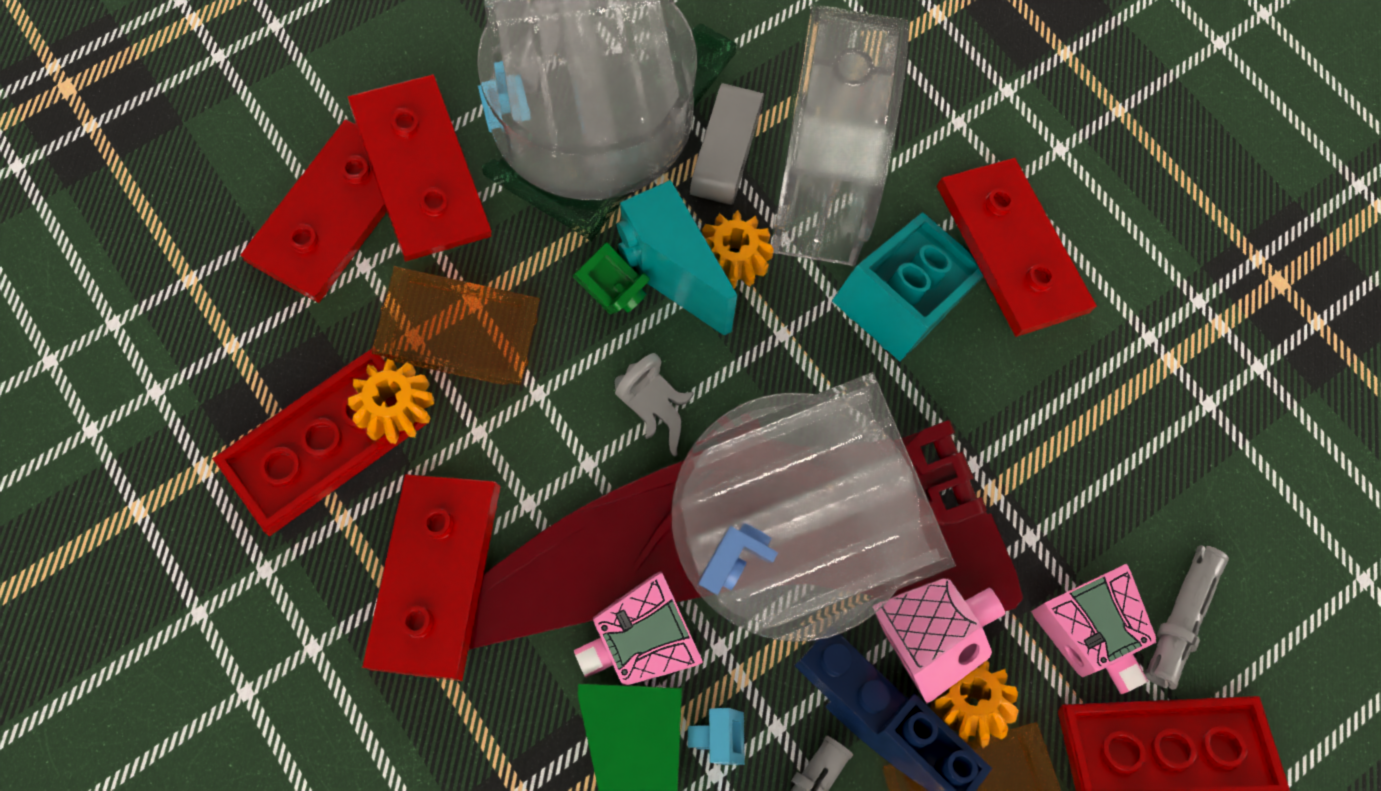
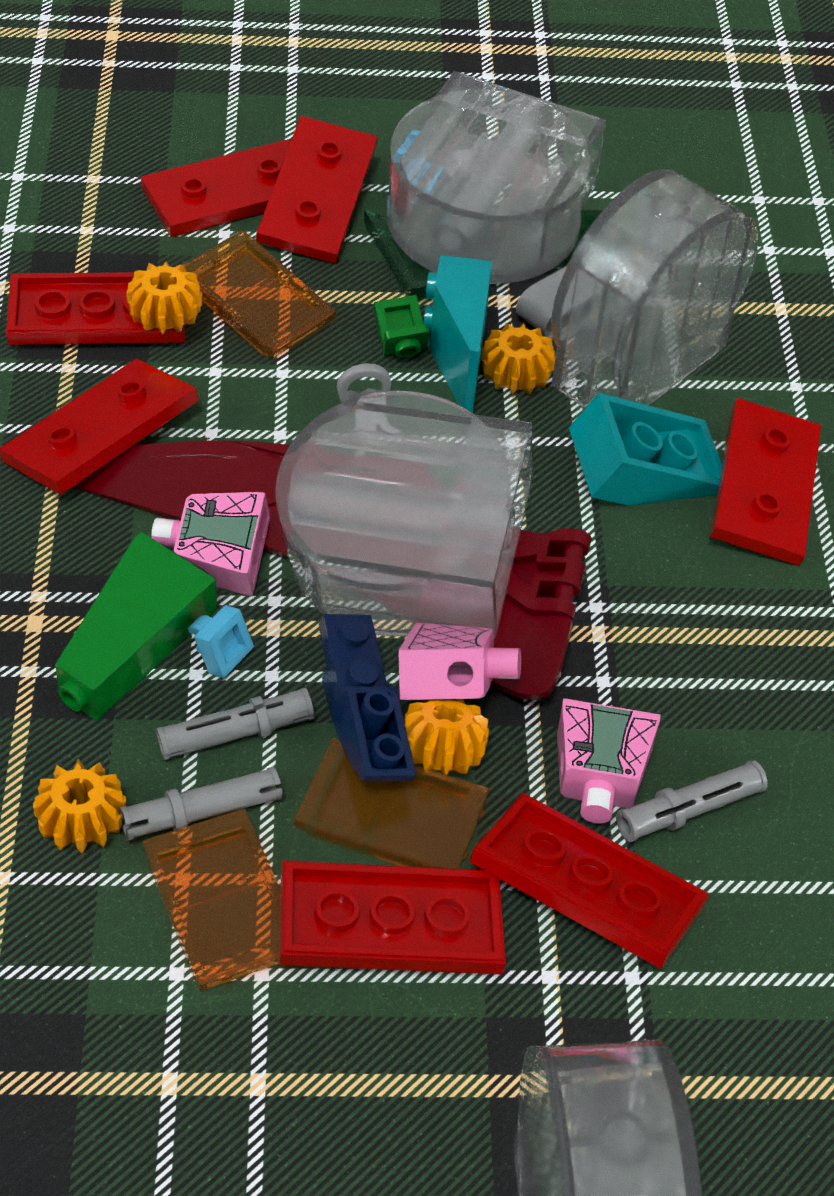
camera: 35 degrees right, 20 degrees down
(726, 566) = (312, 468): medium blue bracket -> none

